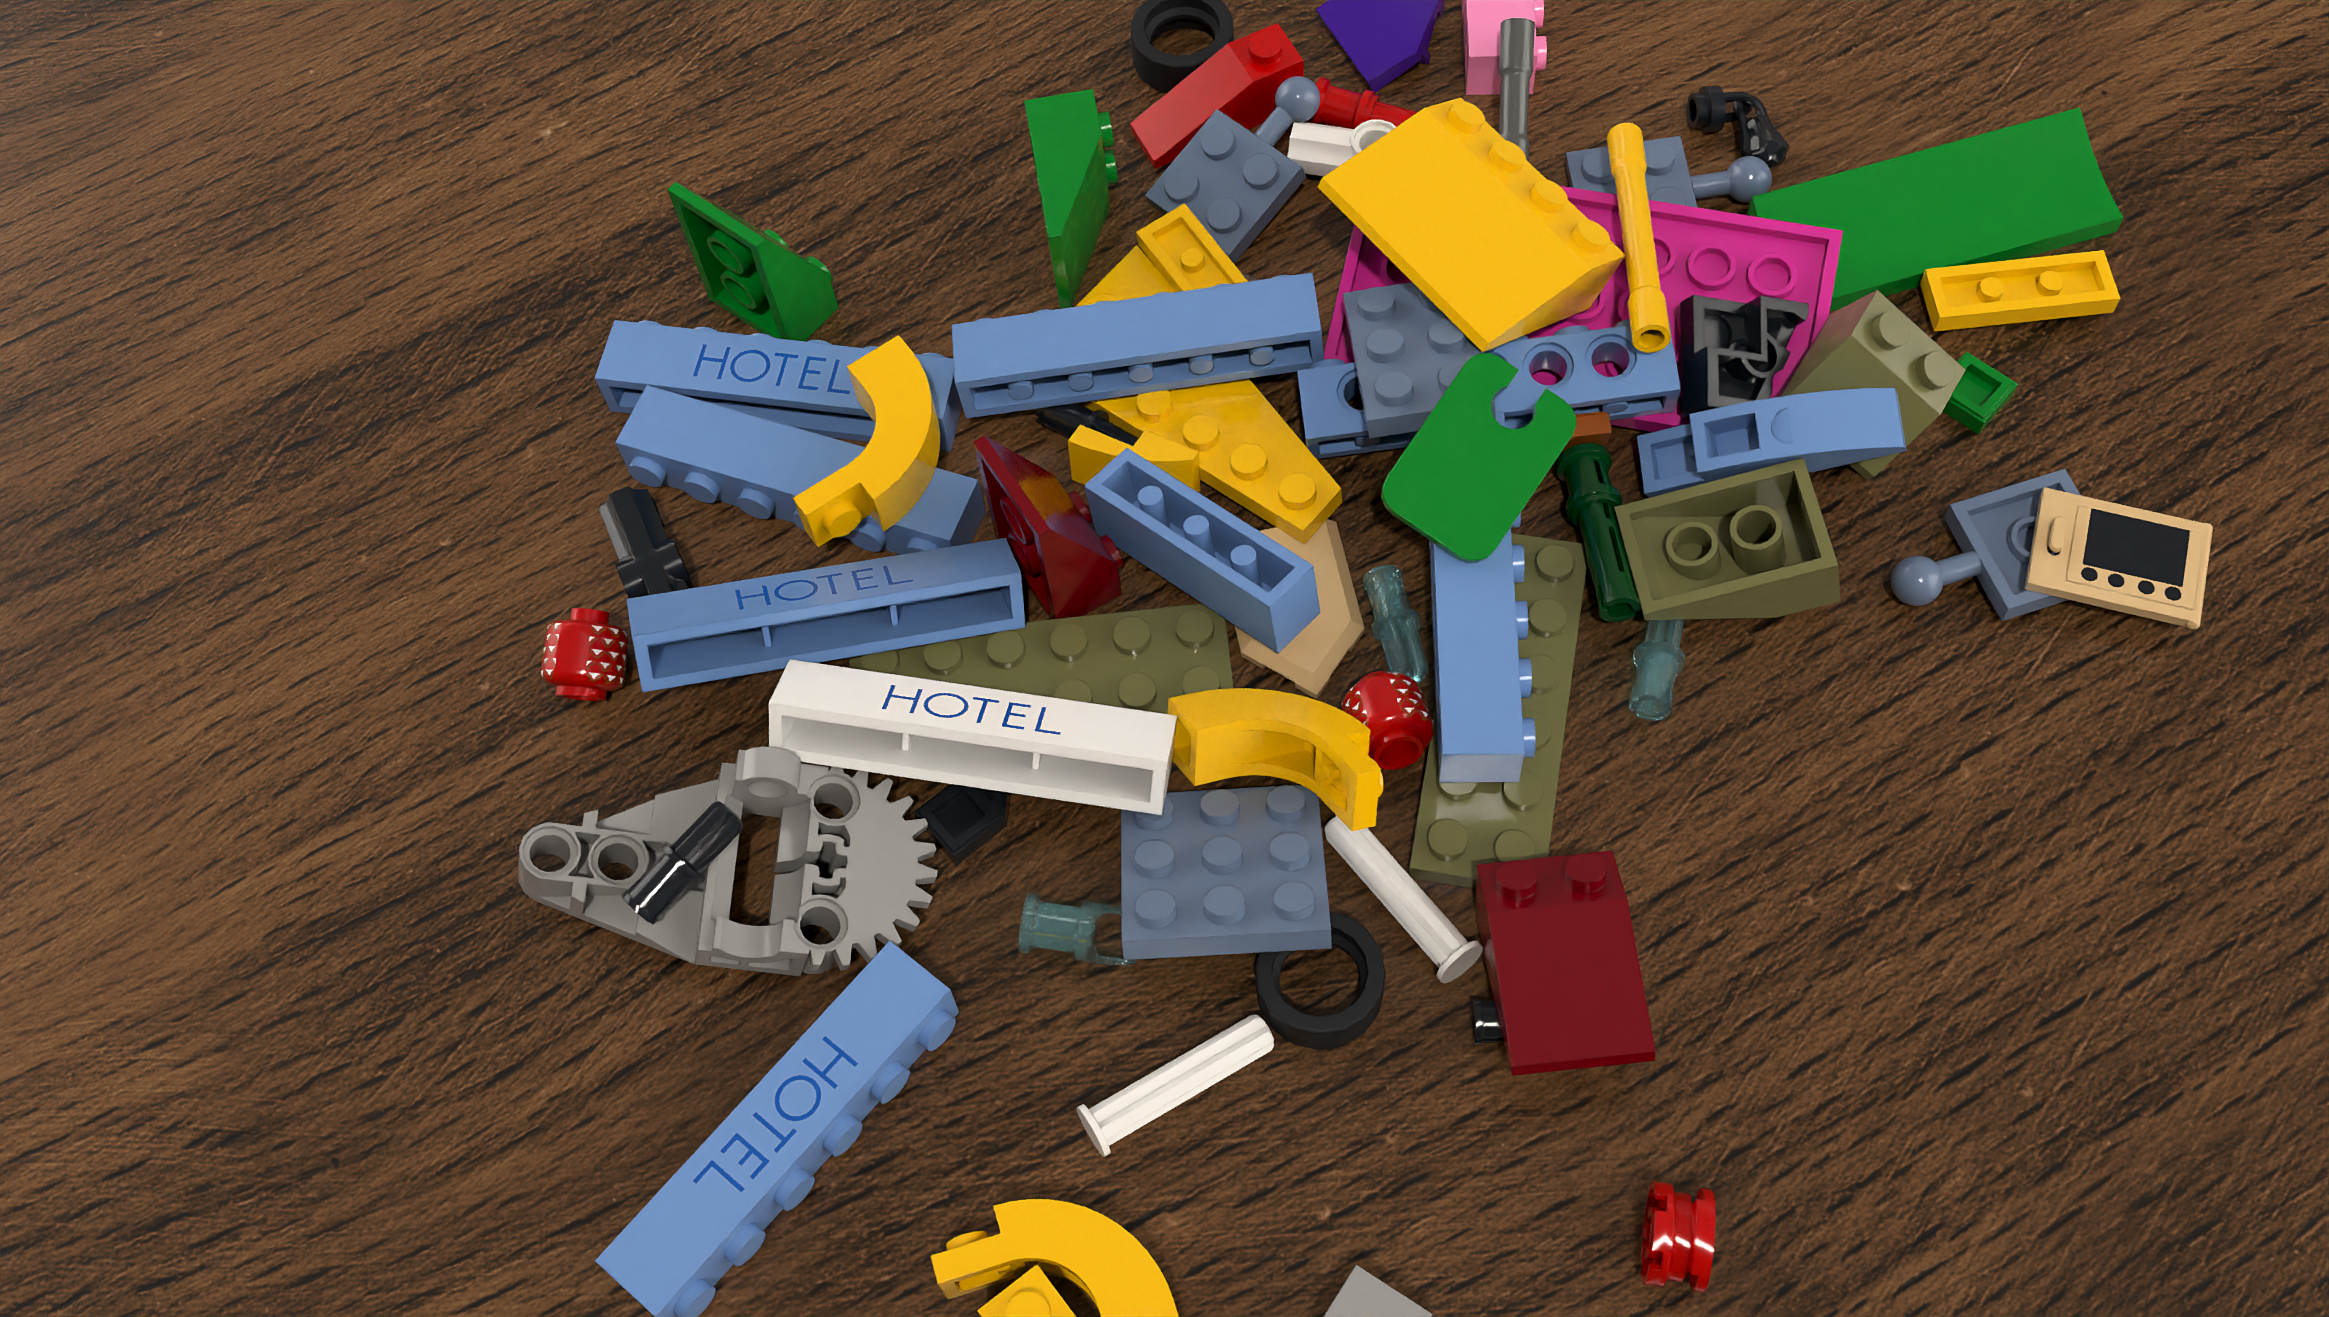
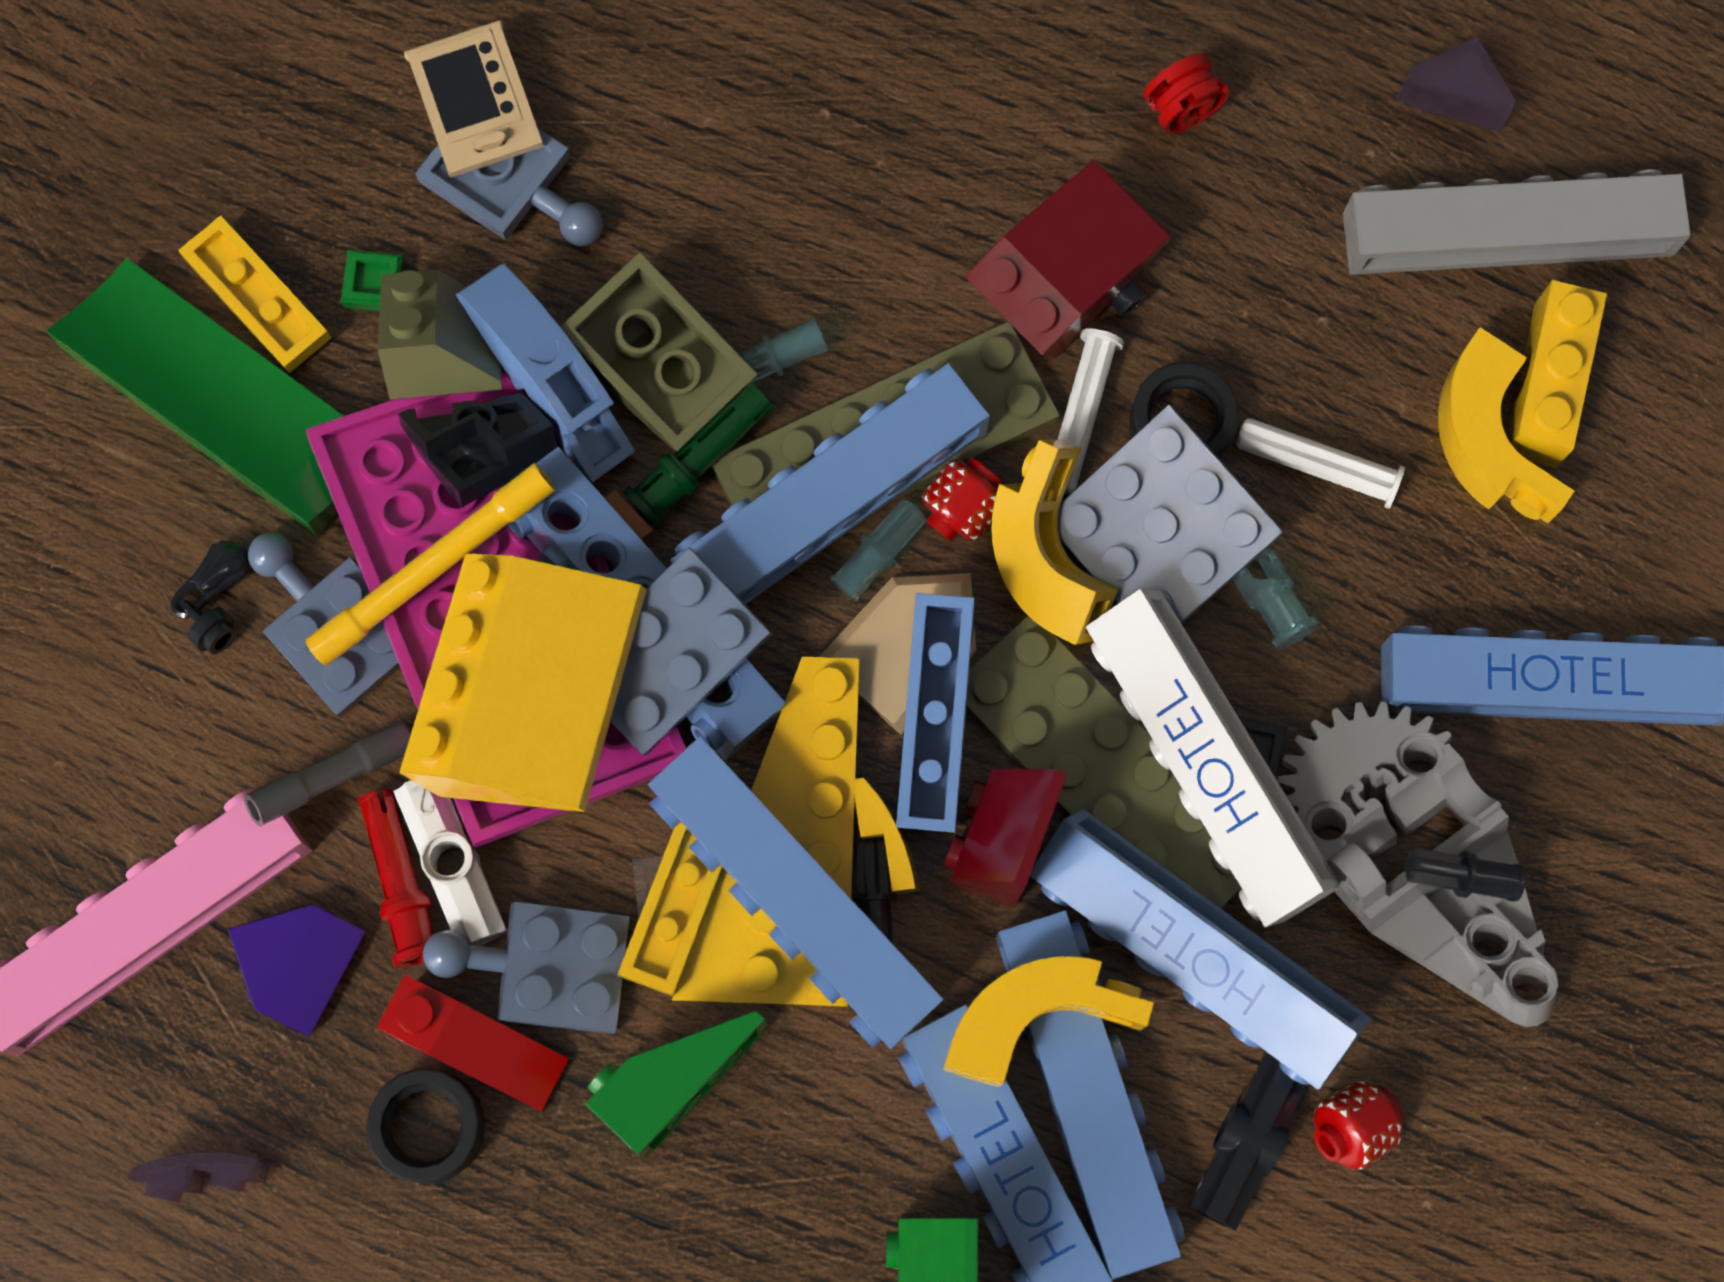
camera: 135 degrees left, 15 degrees up
(1469, 474) = (756, 532): green piece -> none

